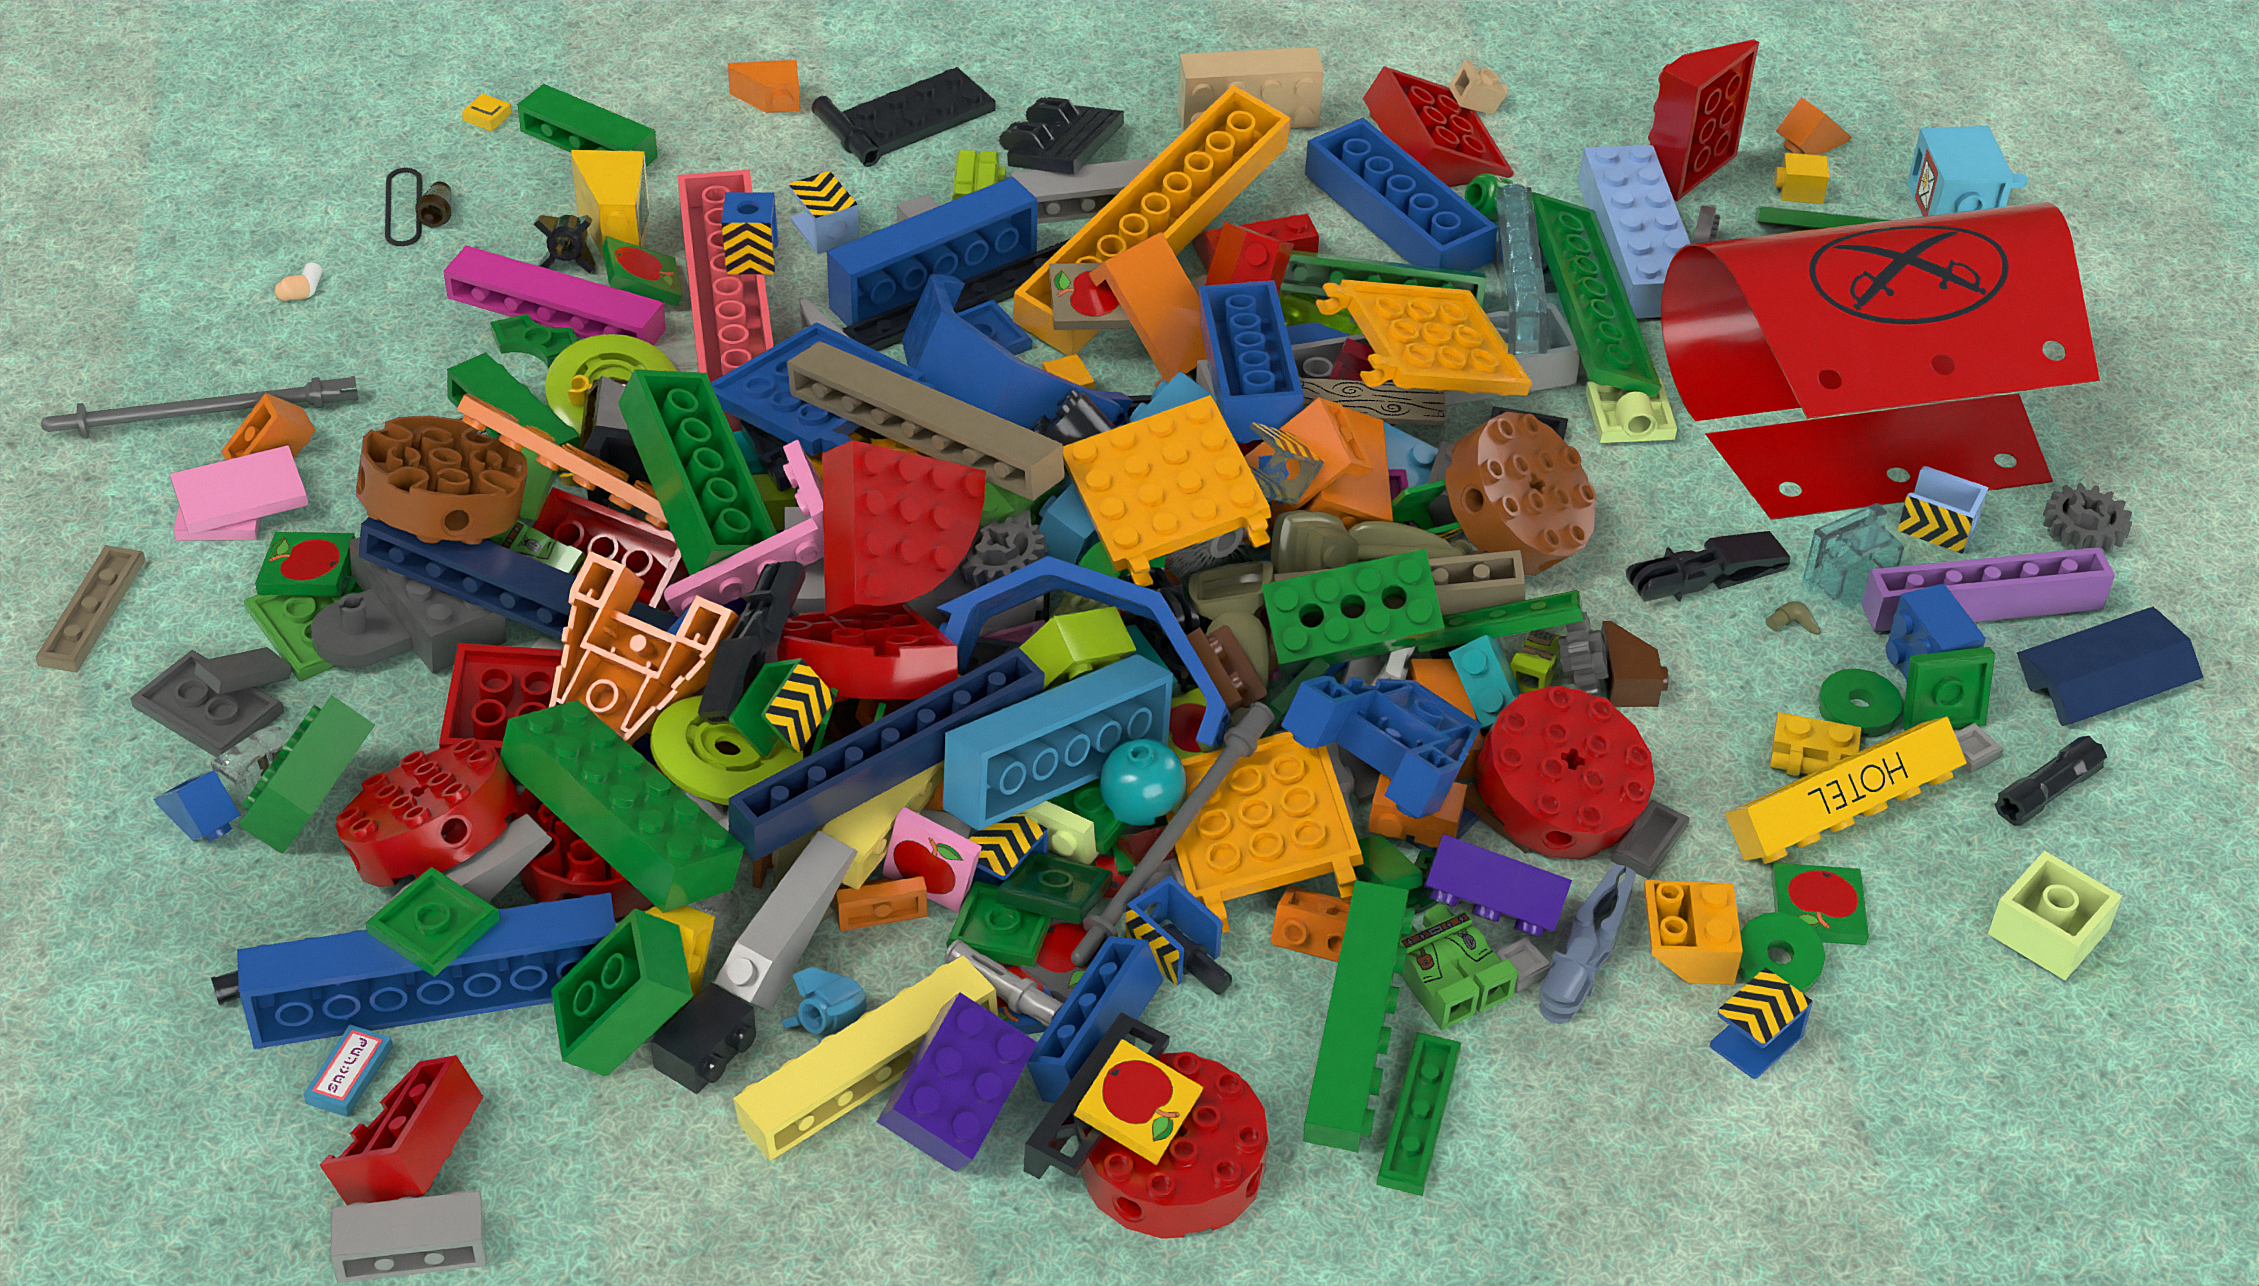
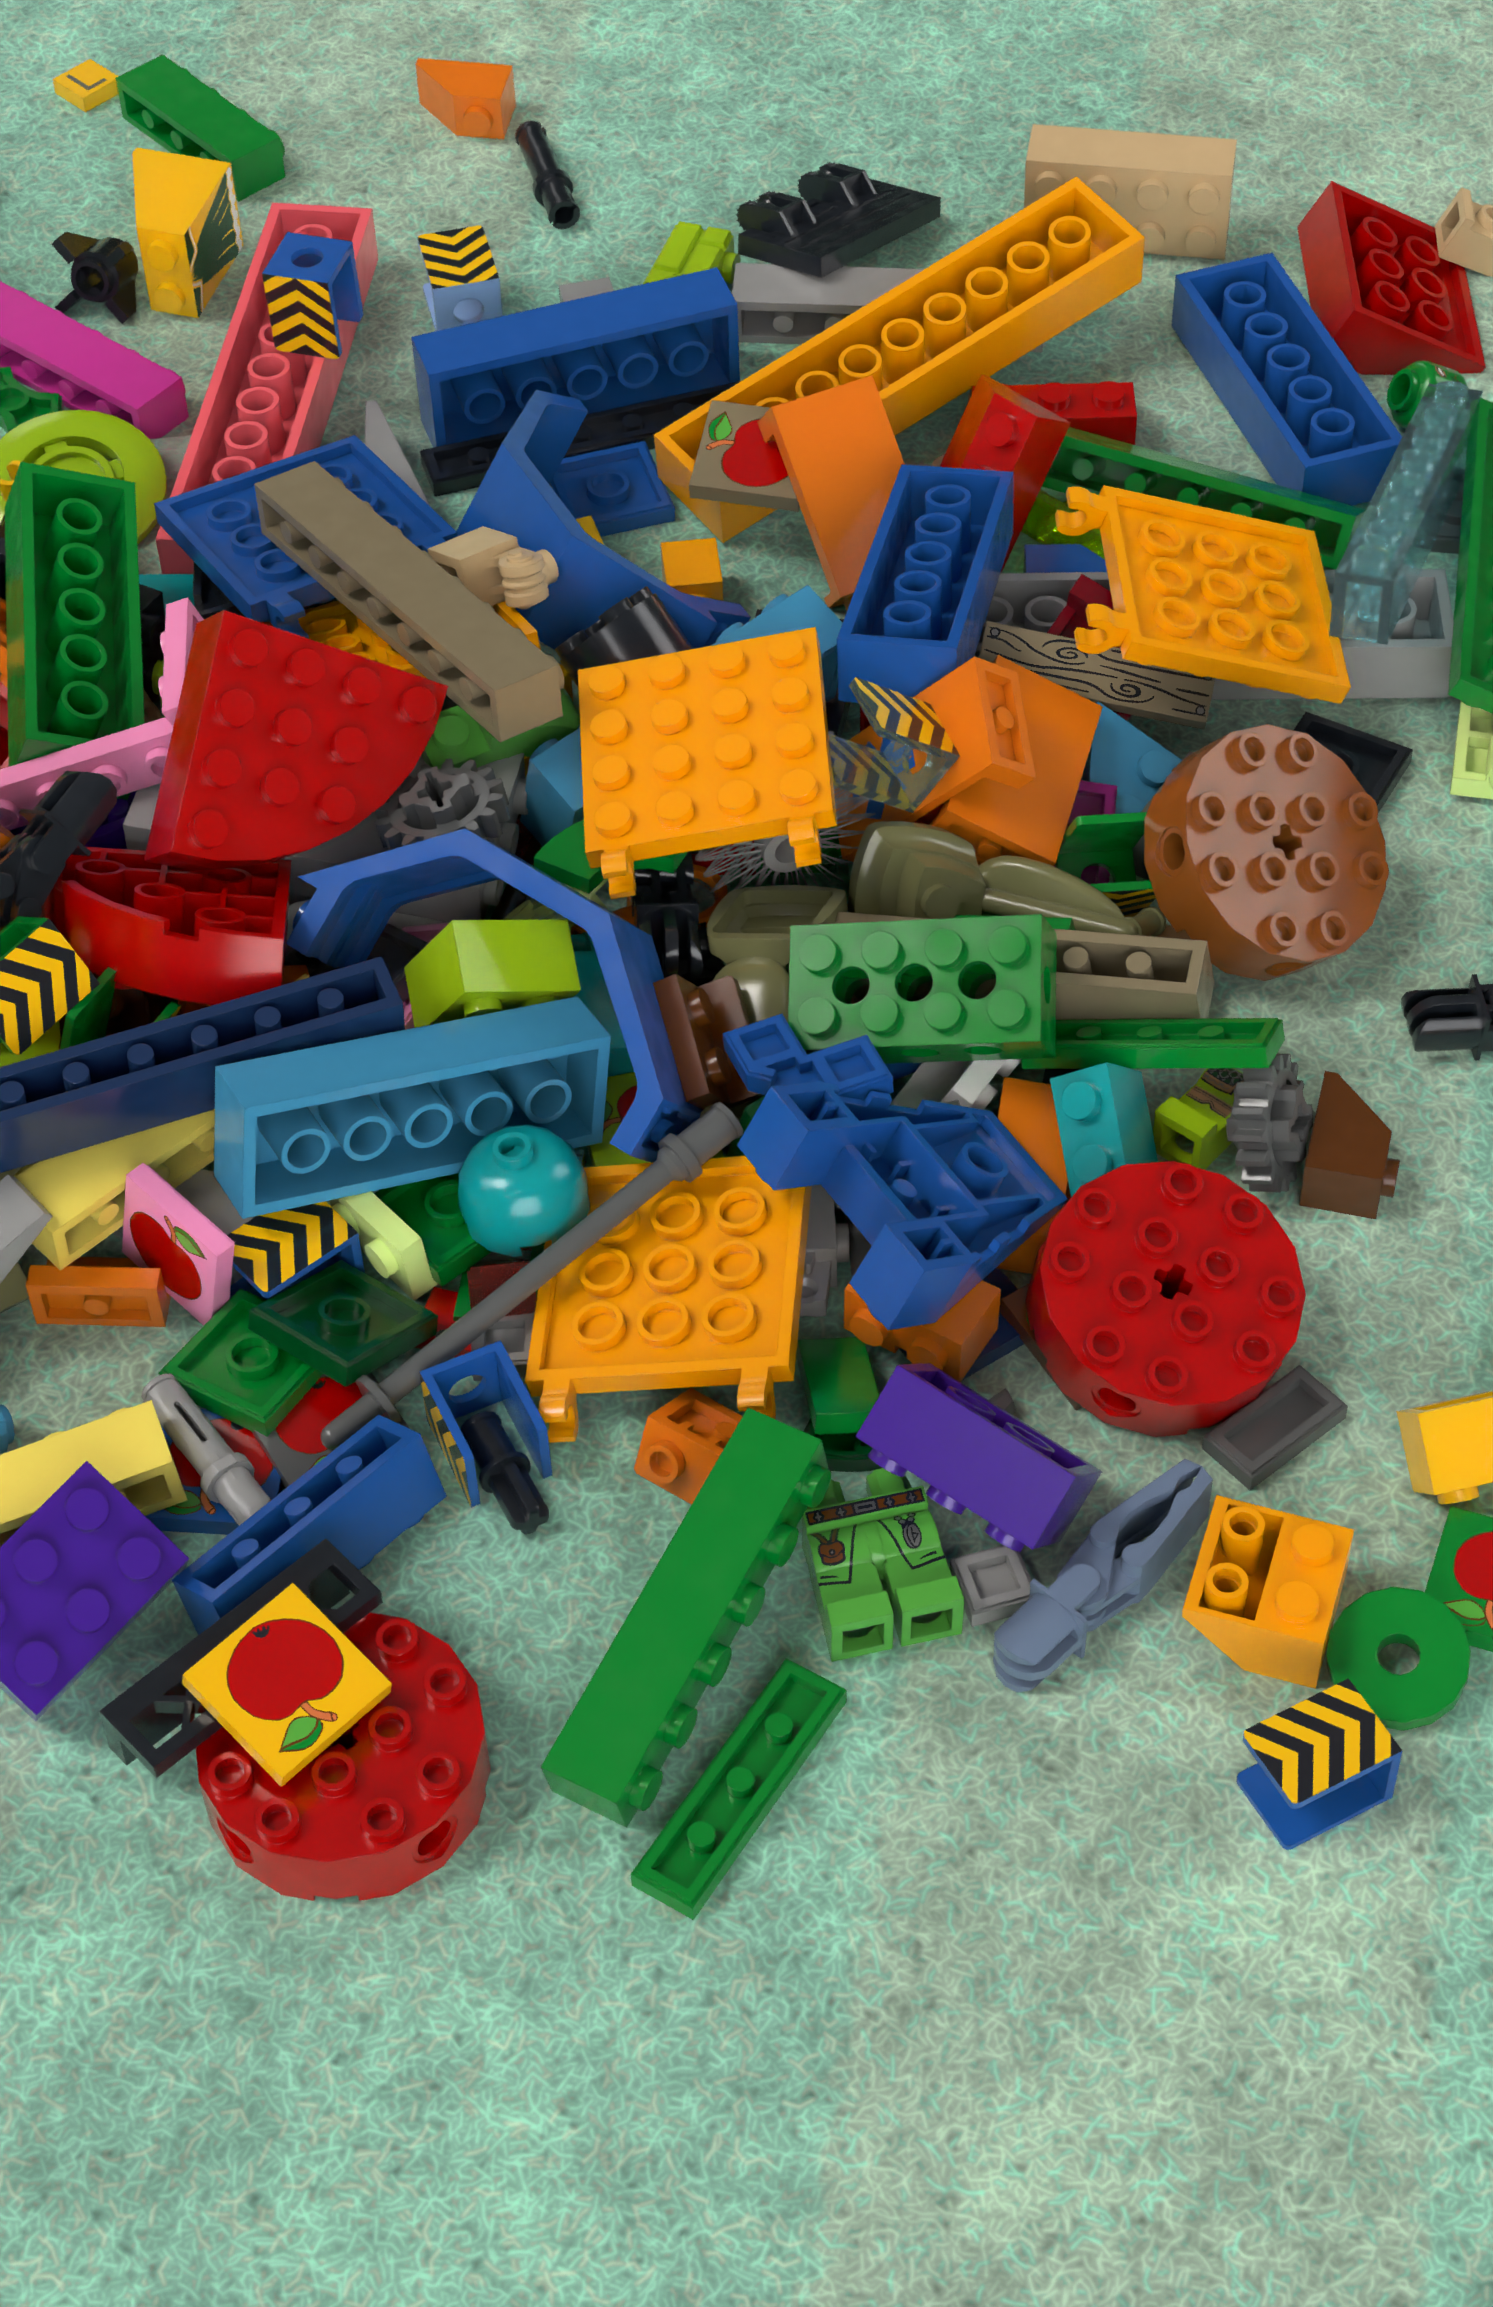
camera: 20 degrees right, 5 degrees up
(642, 271) = (175, 329): green tile -> none
(921, 110) = (663, 160): black plate -> none
(967, 386) = (497, 567): none -> tan brick
(1282, 674) = (772, 1056): none -> blue tile

